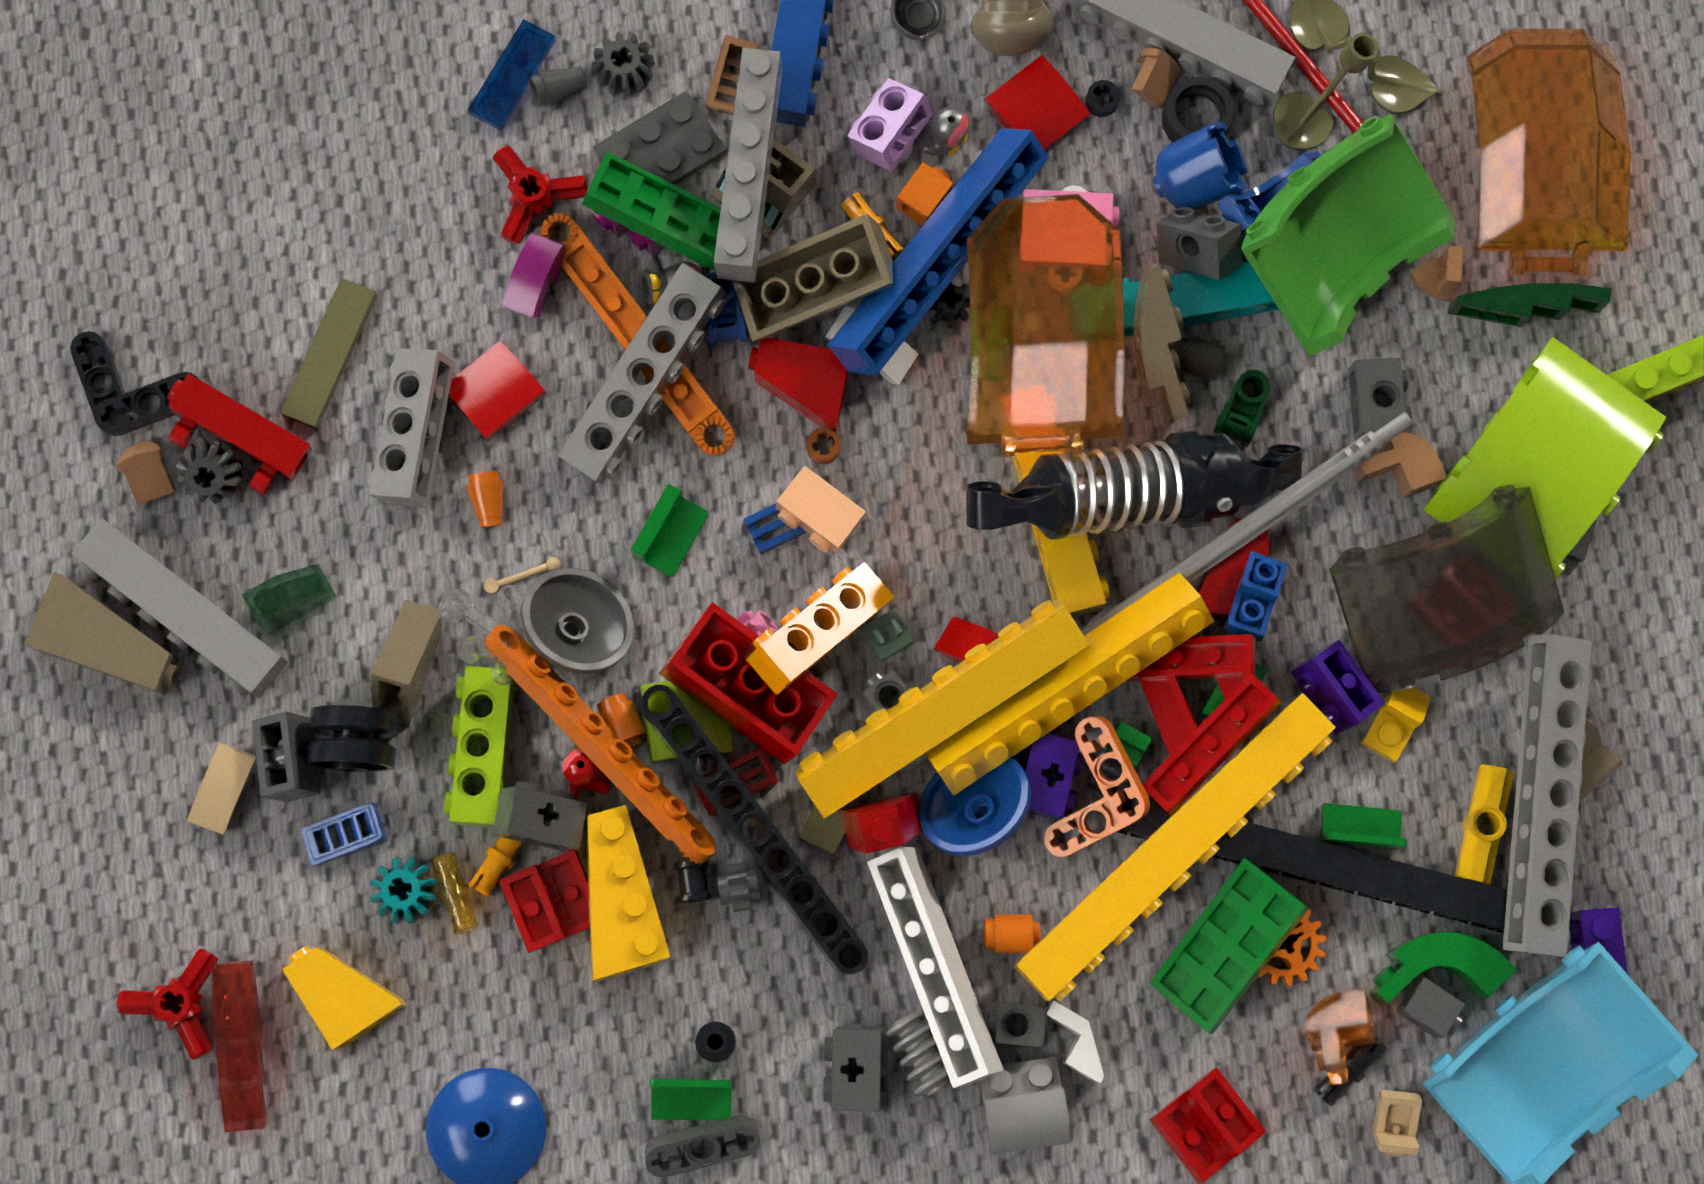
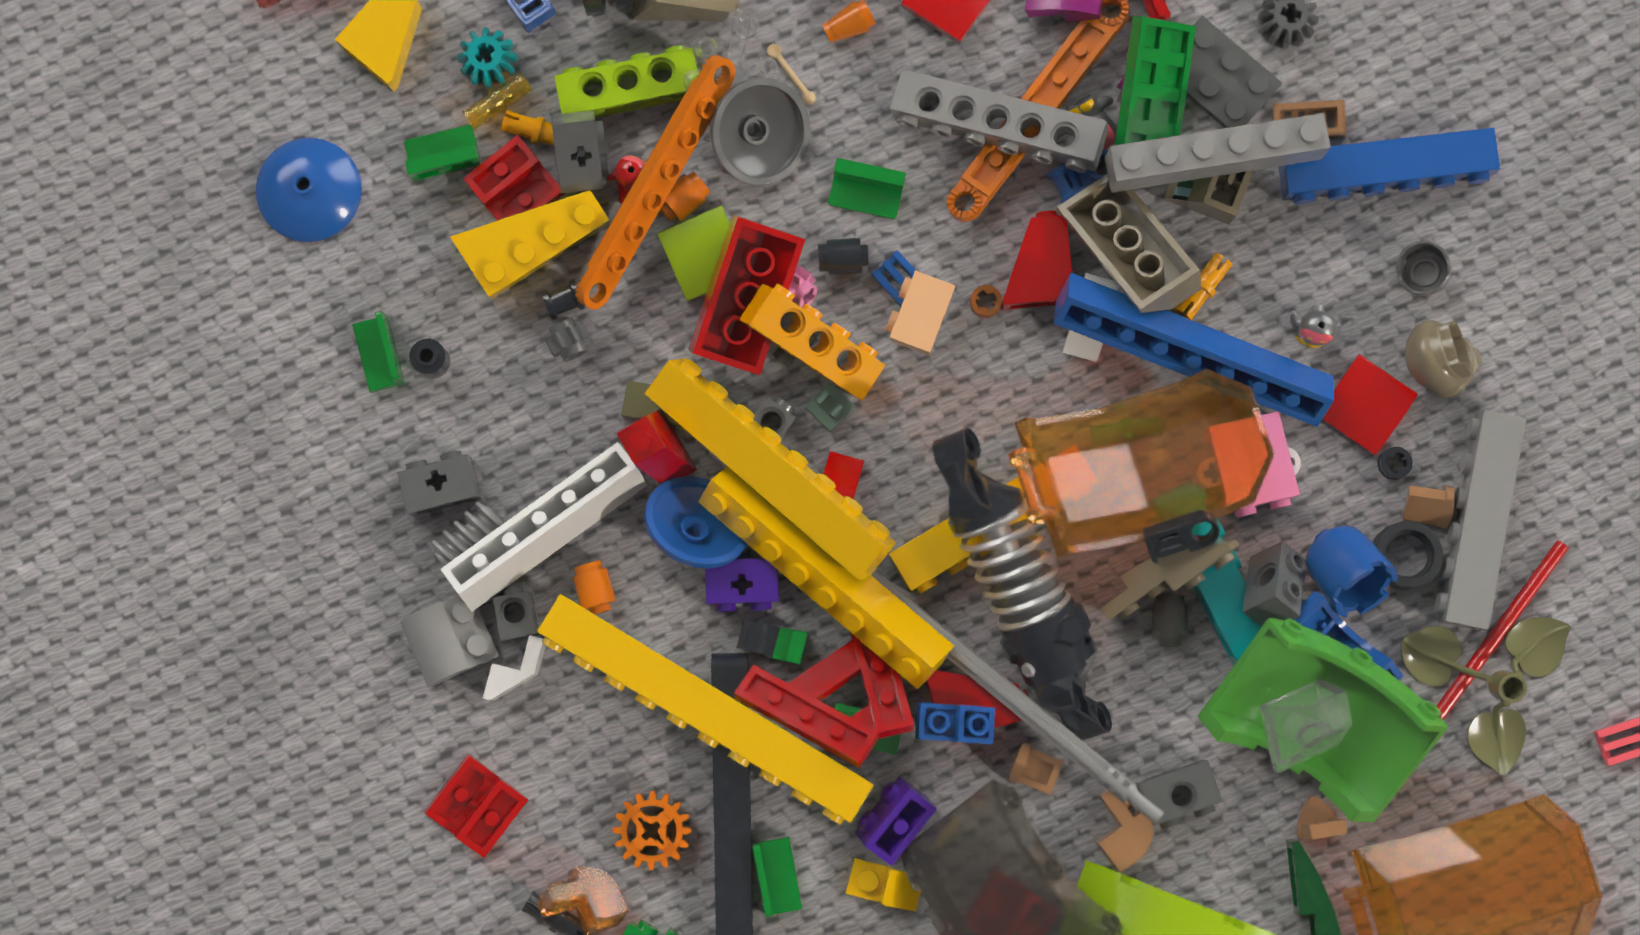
camera: 80 degrees right, 5 degrees up
(491, 969) = (441, 153): none -> green panel
(671, 1141) = (354, 377): dark grey beam -> none
(734, 575) = (842, 256): none -> black brick
(753, 789) = (682, 334): red tile -> none
(772, 838) = (603, 345): black beam -> none
(894, 127) = (1303, 279): lavender brick -> none
(924, 193) = (1250, 323): orange brick -> none
(958, 298) = (1148, 385): black gear -> none
(1112, 803) = (731, 642): orange beam -> none
(1130, 315) = (1177, 535): none -> black piece
(1228, 946) = (633, 780): green plate -> none
(1241, 413) = (1131, 669): dark green piece -> none
(1316, 535) = (1034, 768): none -> medium nougat tile
(1345, 250) = (1305, 723): none -> clear slope

